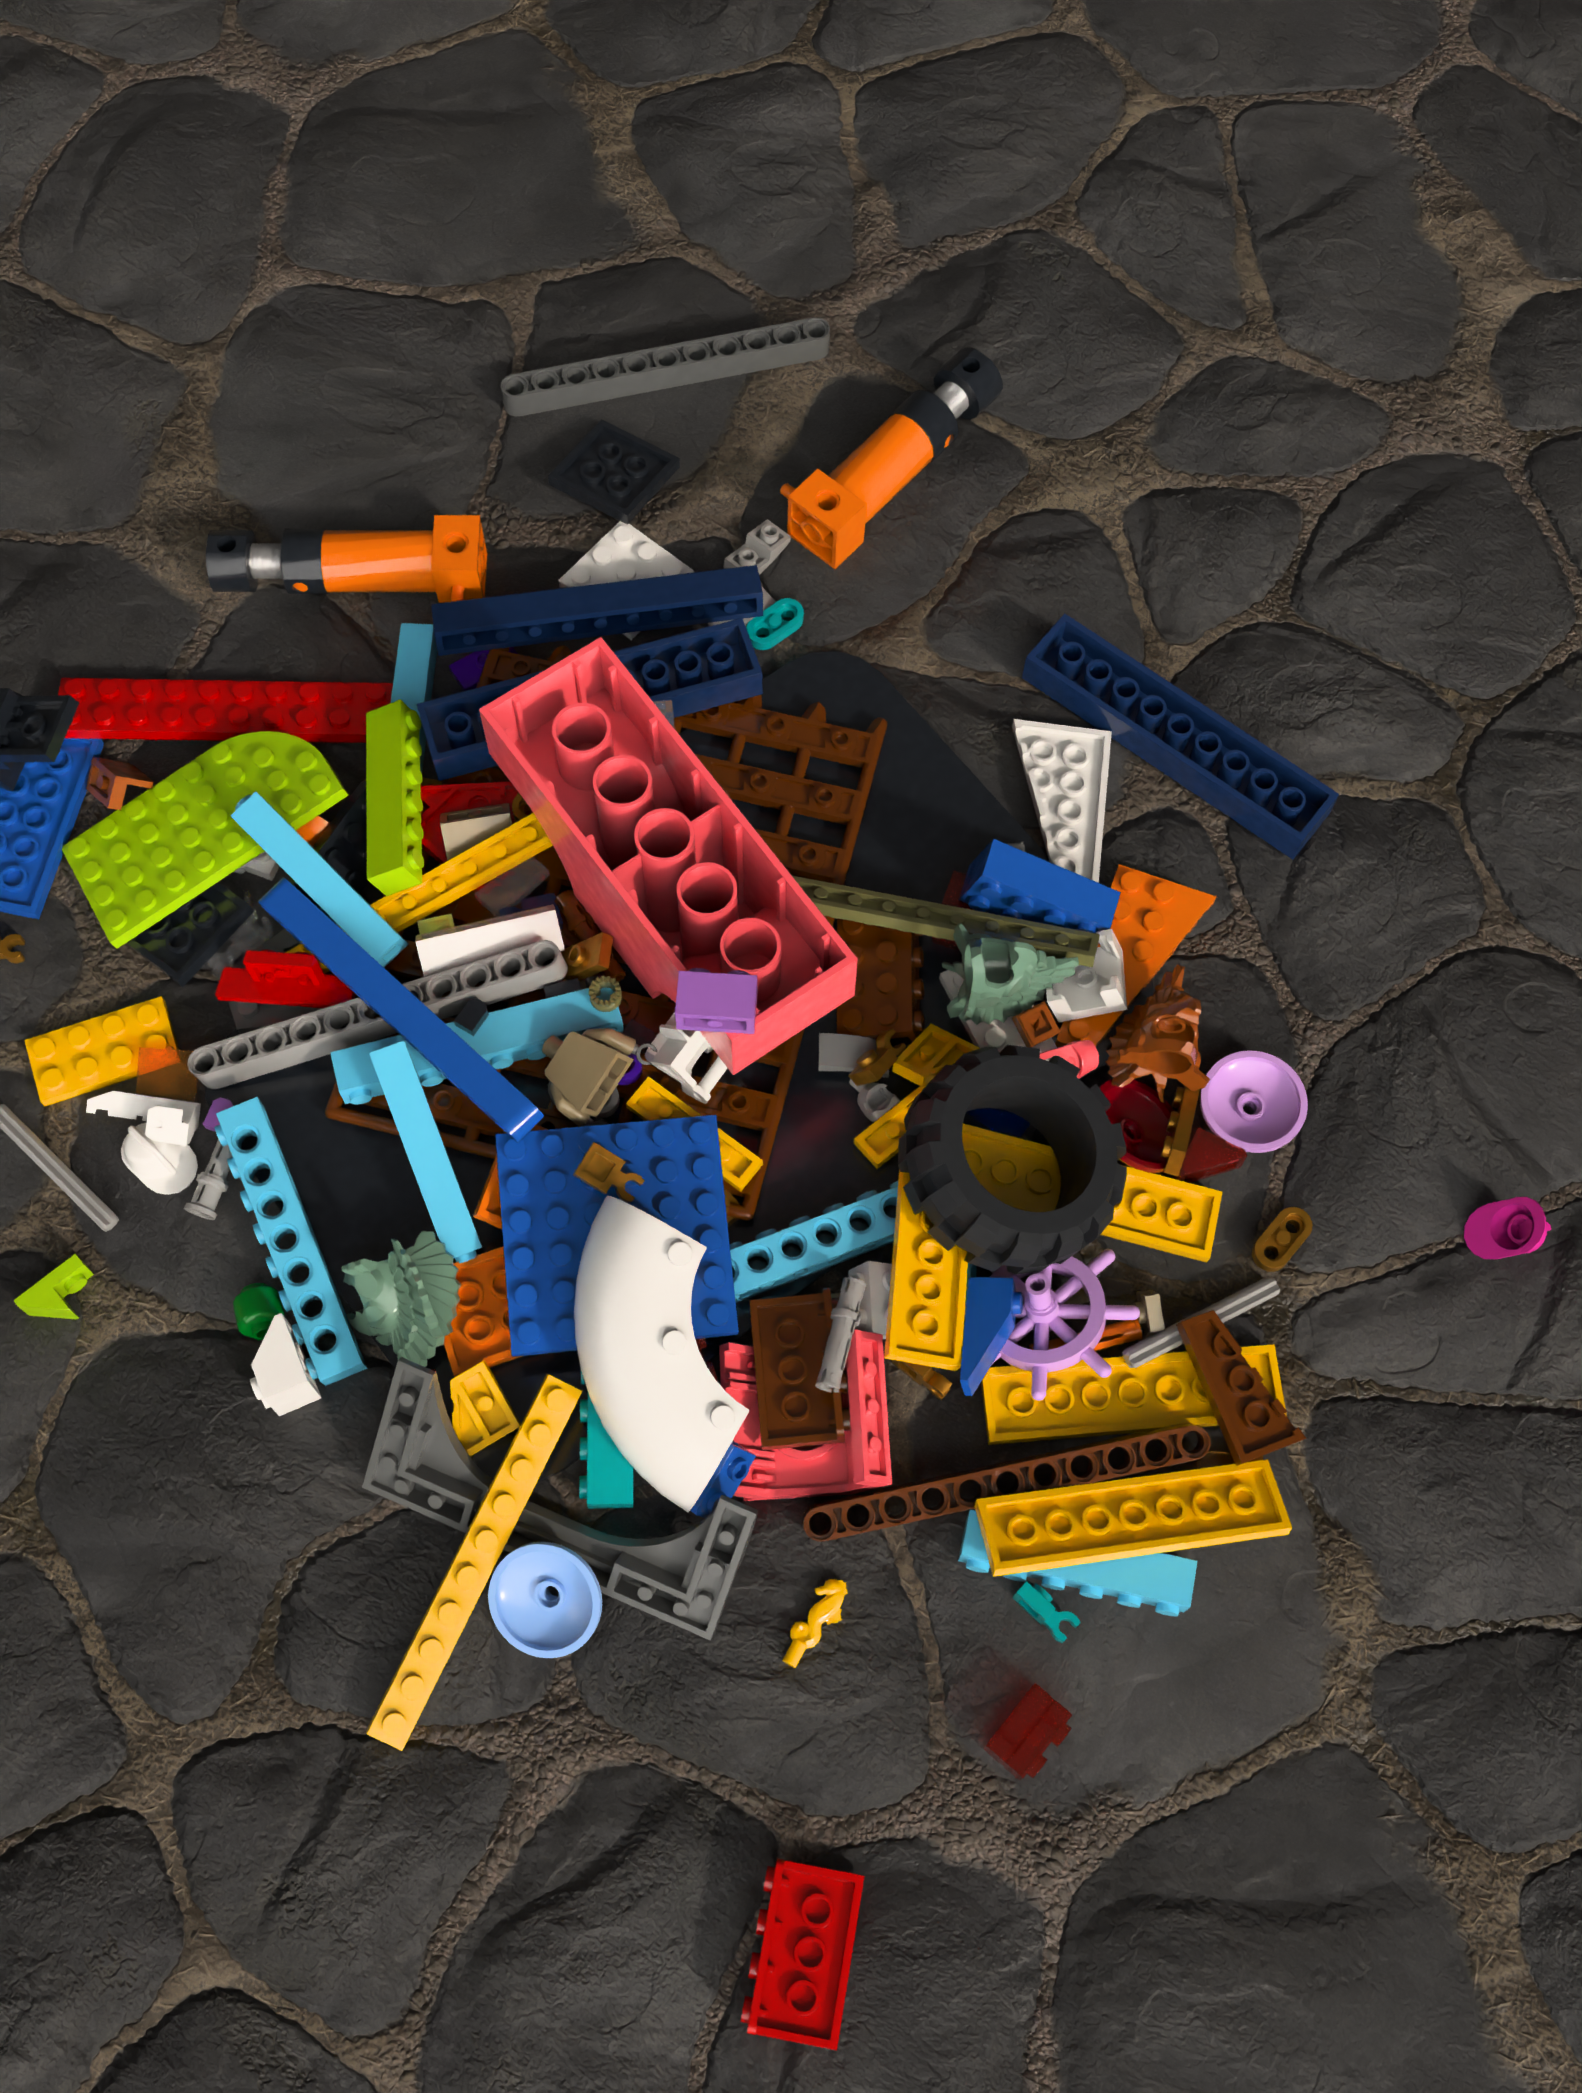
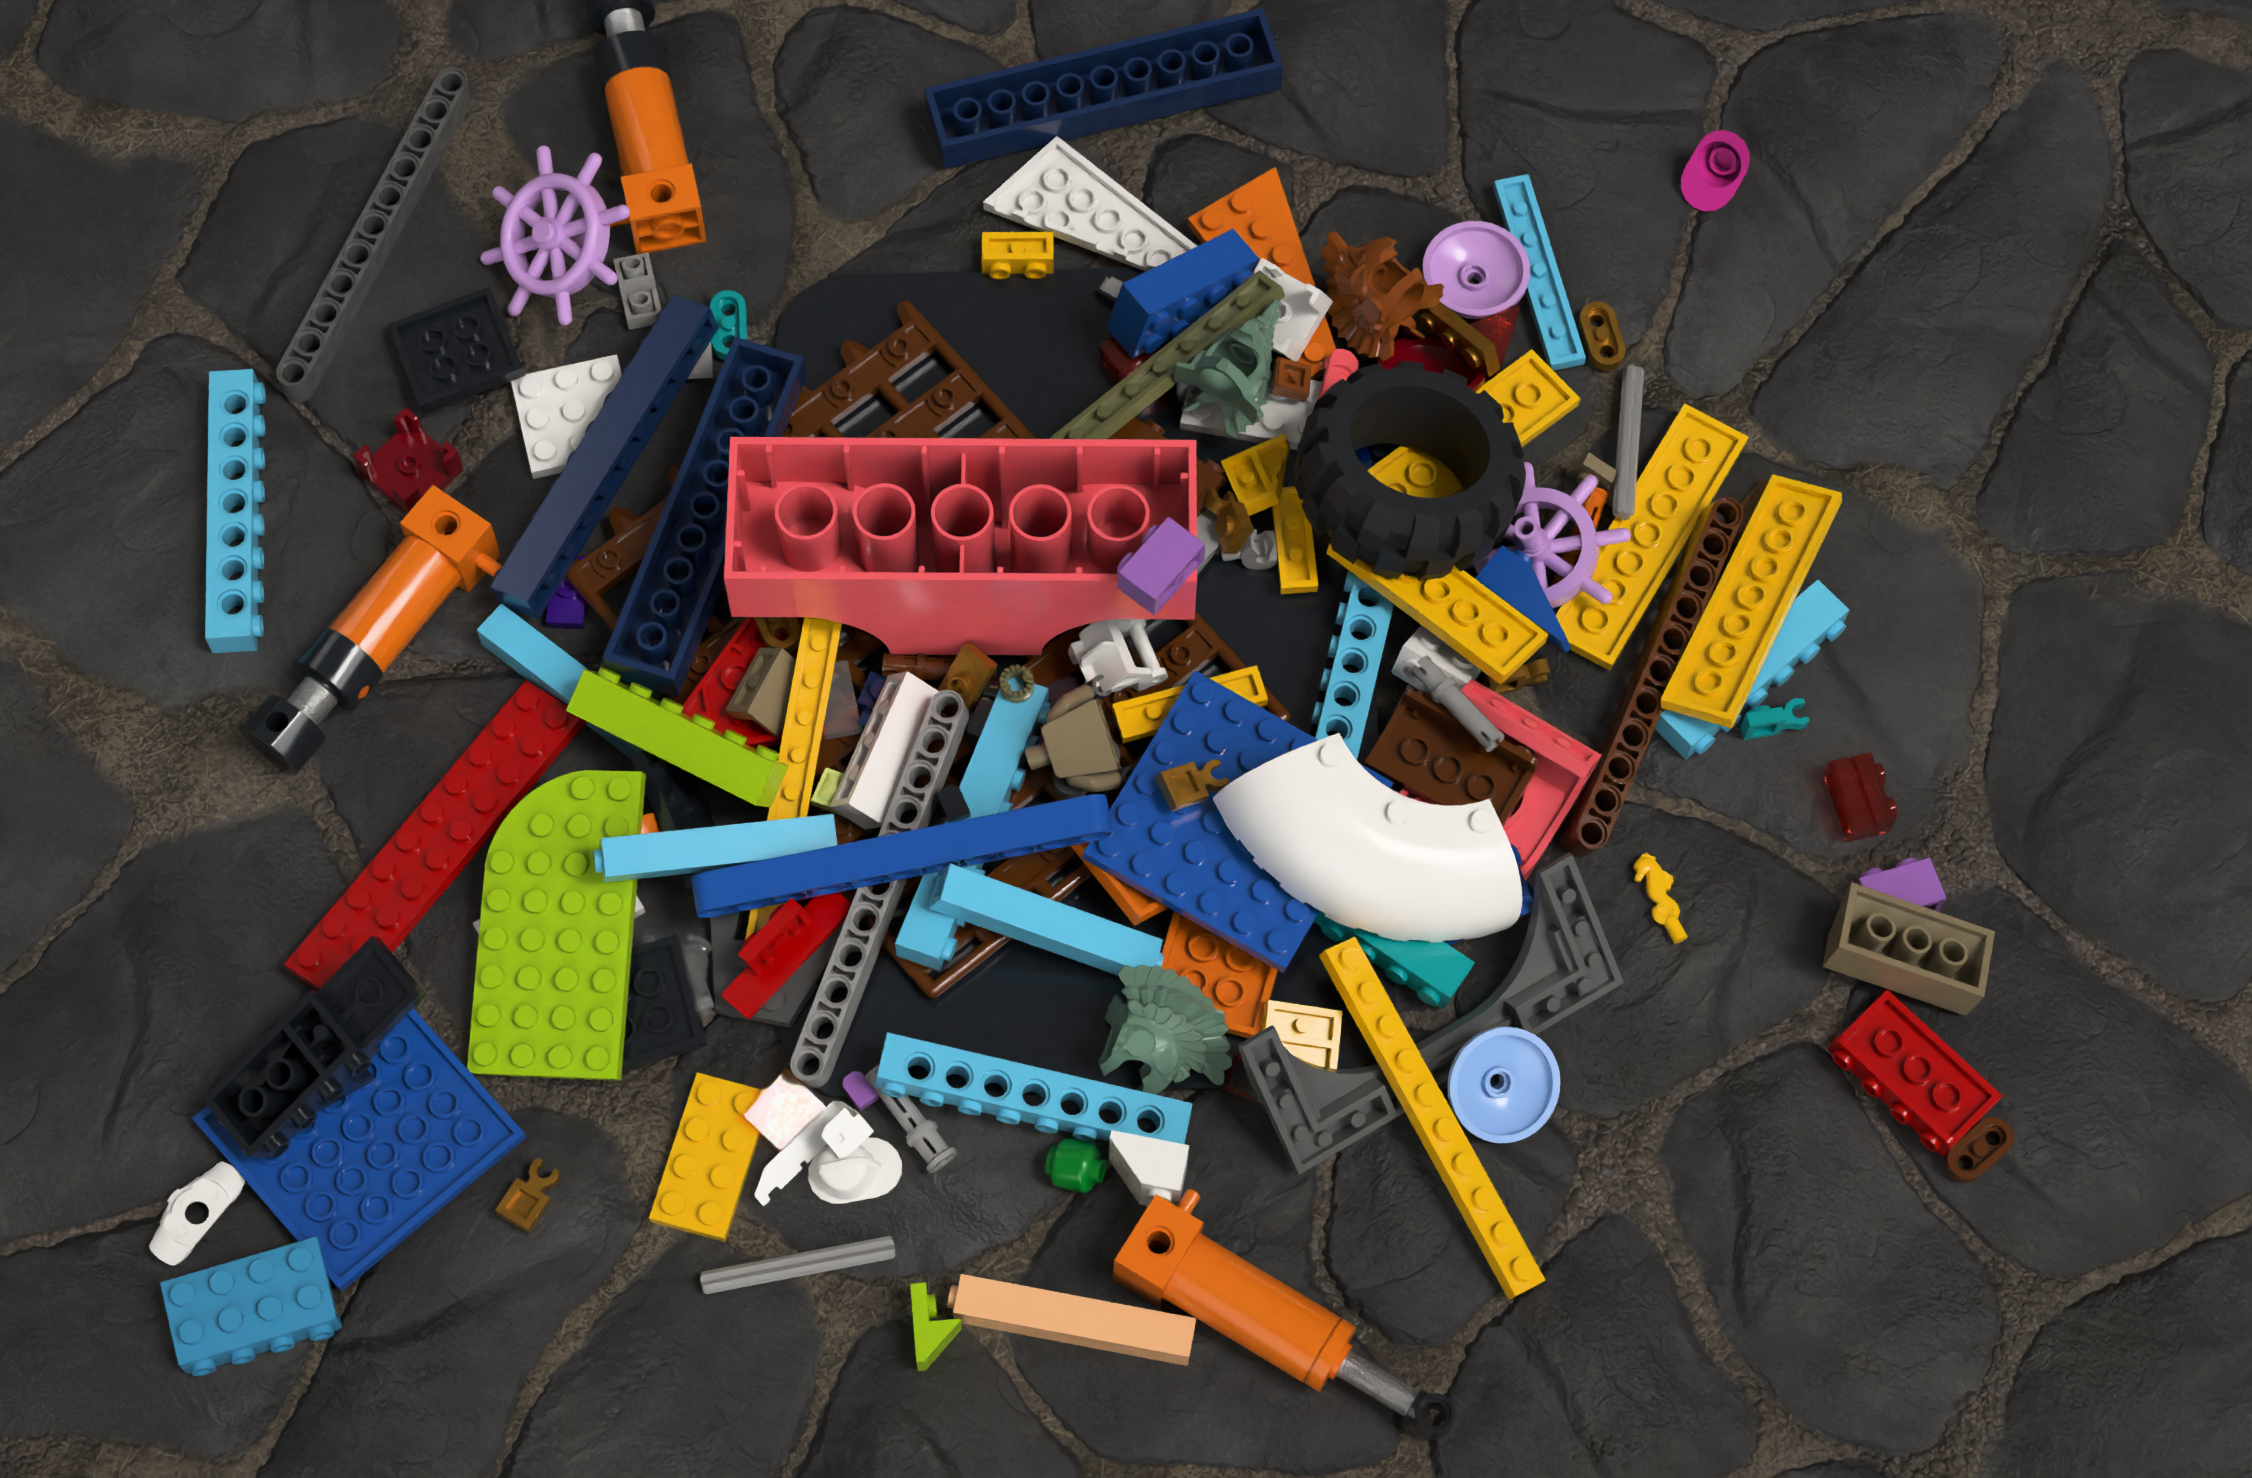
camera: 55 degrees left, 0 degrees up
(110, 778) = (446, 979): dark orange panel -> none
(129, 1397) = (1072, 1319): none -> light nougat brick
(216, 1533) = (1257, 1310): none -> orange piece
(387, 425) = (226, 393): none -> medium azure brick
(506, 505) = (408, 463): none -> dark red panel
(744, 464) = (555, 235): none -> lavender piece
(771, 2066) = (1977, 1151): none -> reddish brown plate
(911, 1872) = (1910, 949): none -> dark tan slope
(963, 1827) = (1909, 881): none -> medium lavender brick
(991, 769) = (1017, 254): none -> yellow bracket
(1241, 1403) = (1719, 459): reddish brown wing -> none
(1292, 1160) = (1545, 287): none -> medium azure plate

